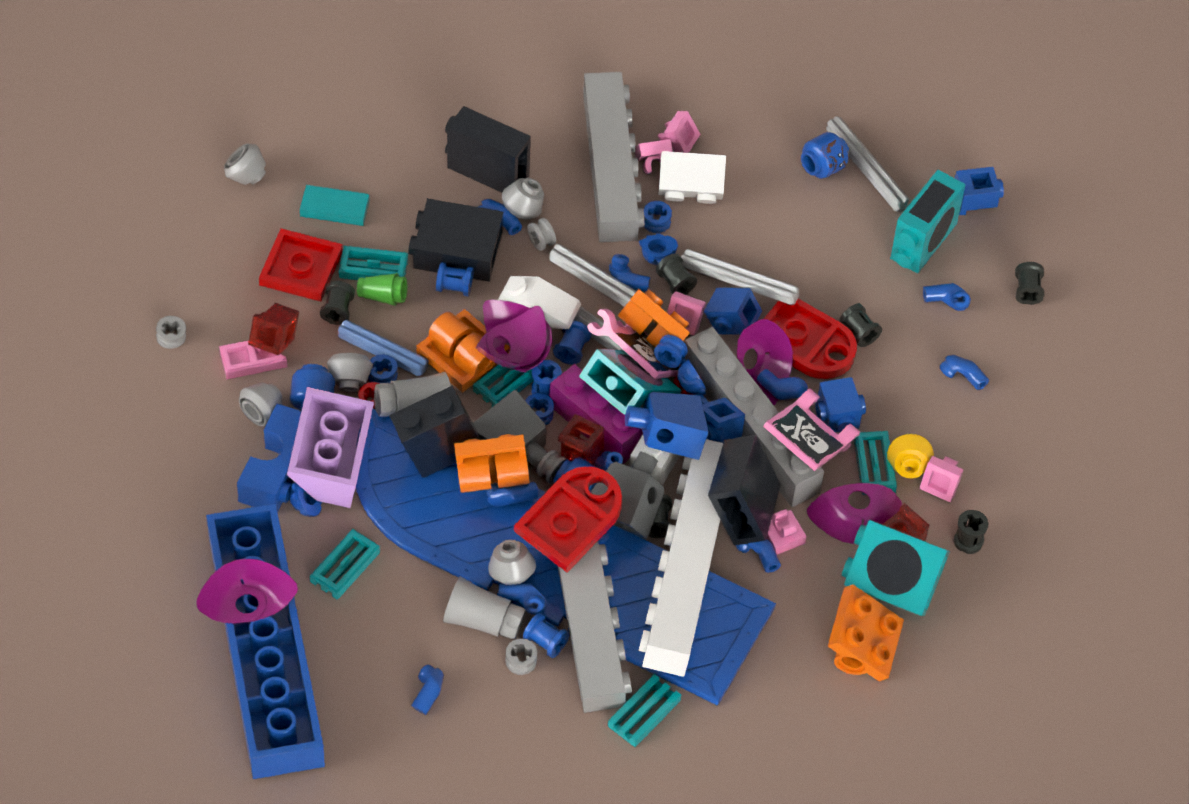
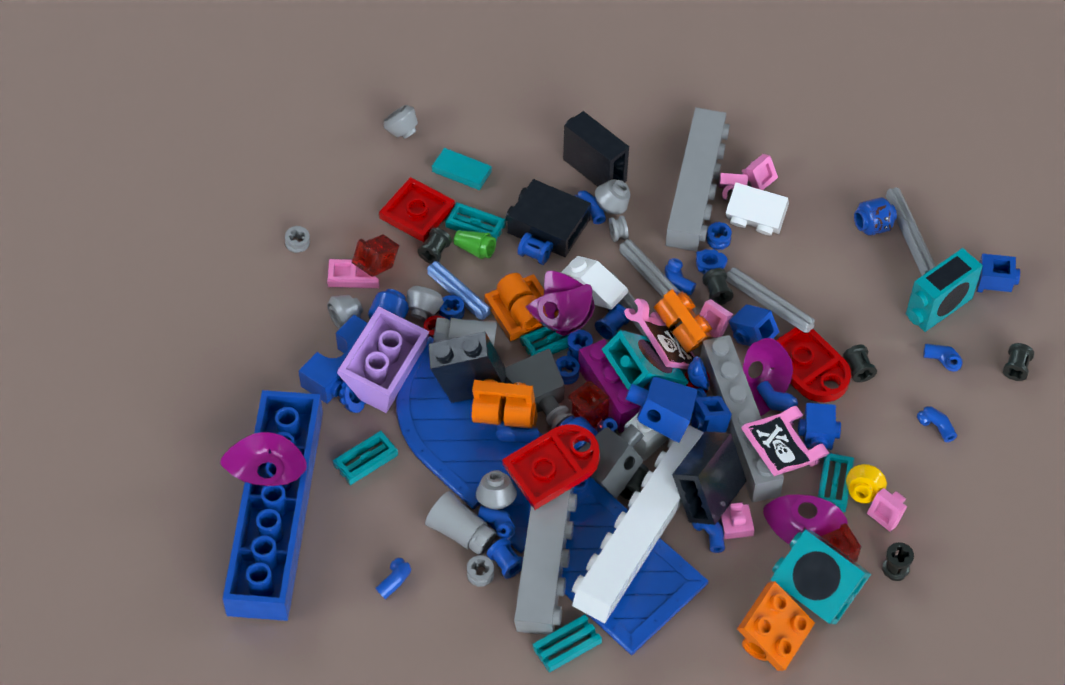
camera: 20 degrees right, 0 degrees up
(670, 351) = (686, 347): blue bush -> none

